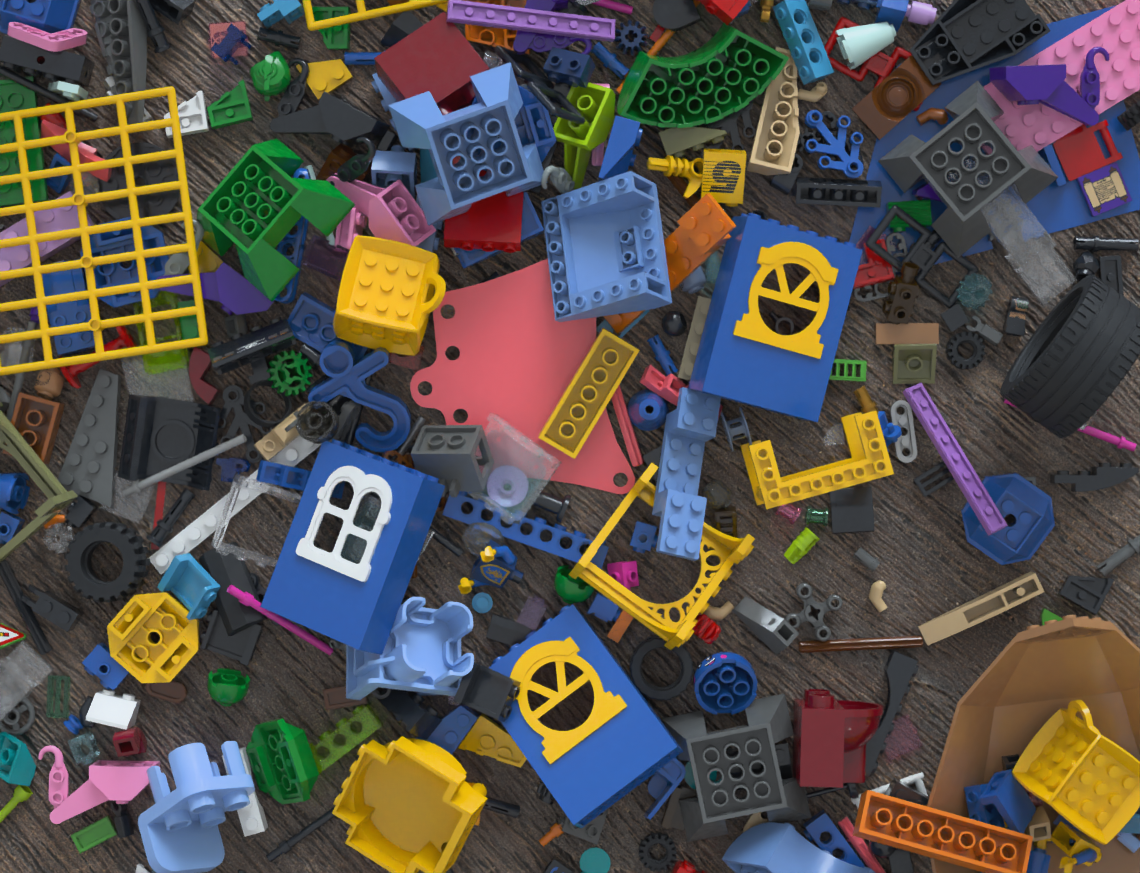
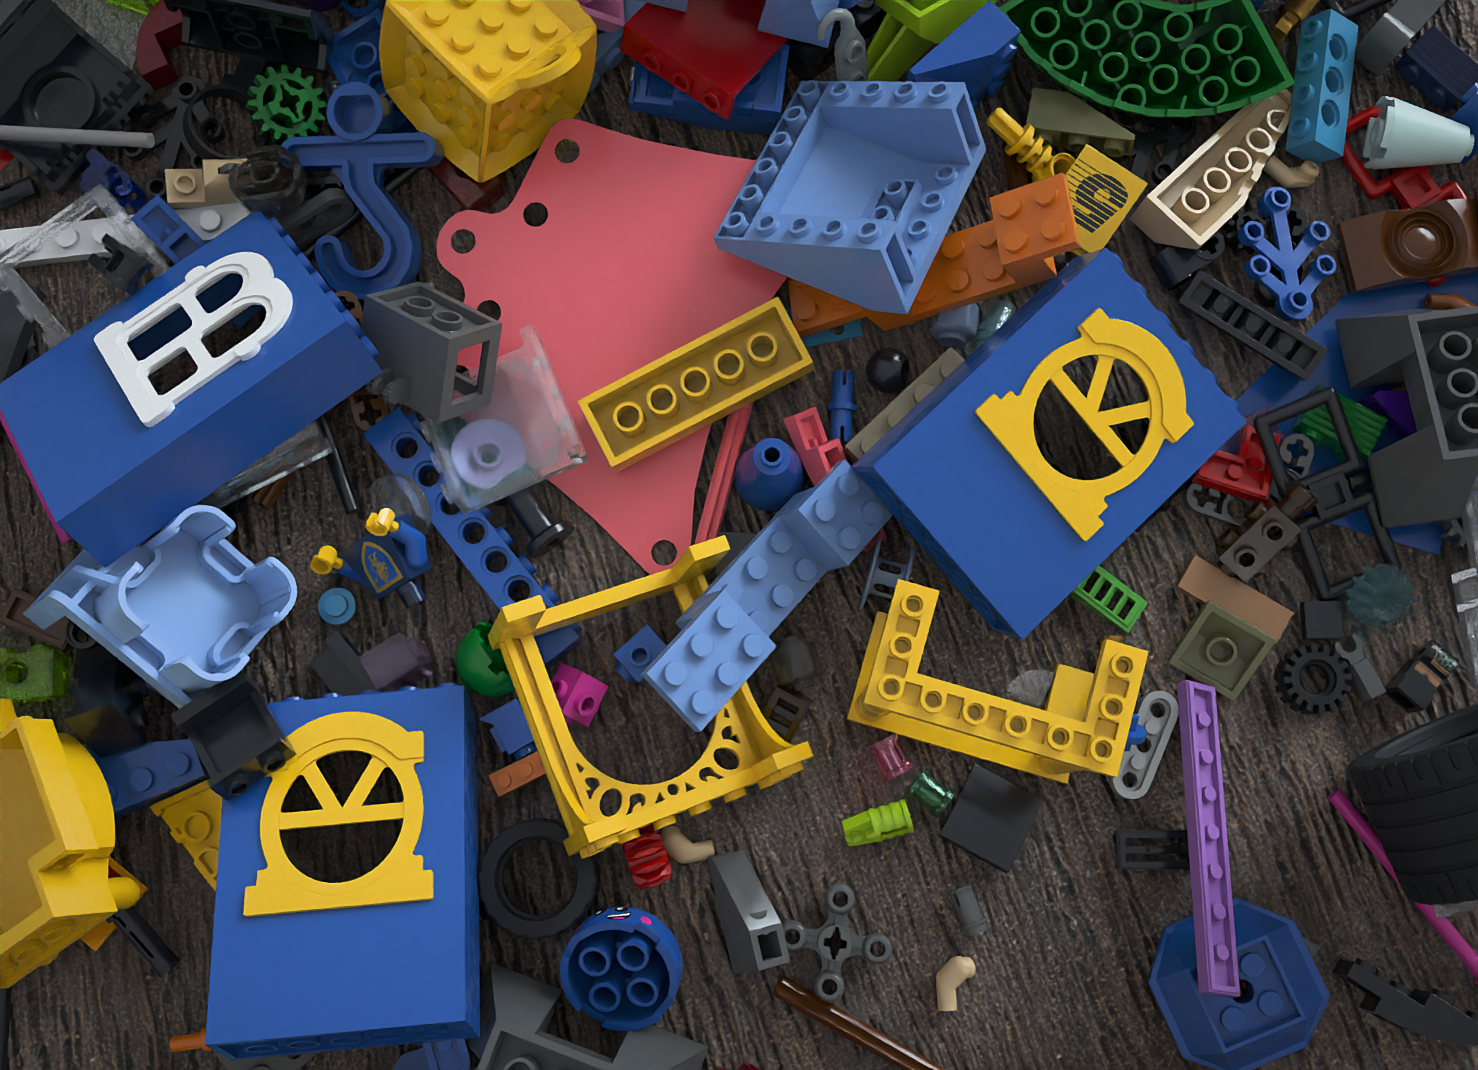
camera: 30 degrees right, 10 degrees down
(284, 509) = (124, 267): none -> black piece

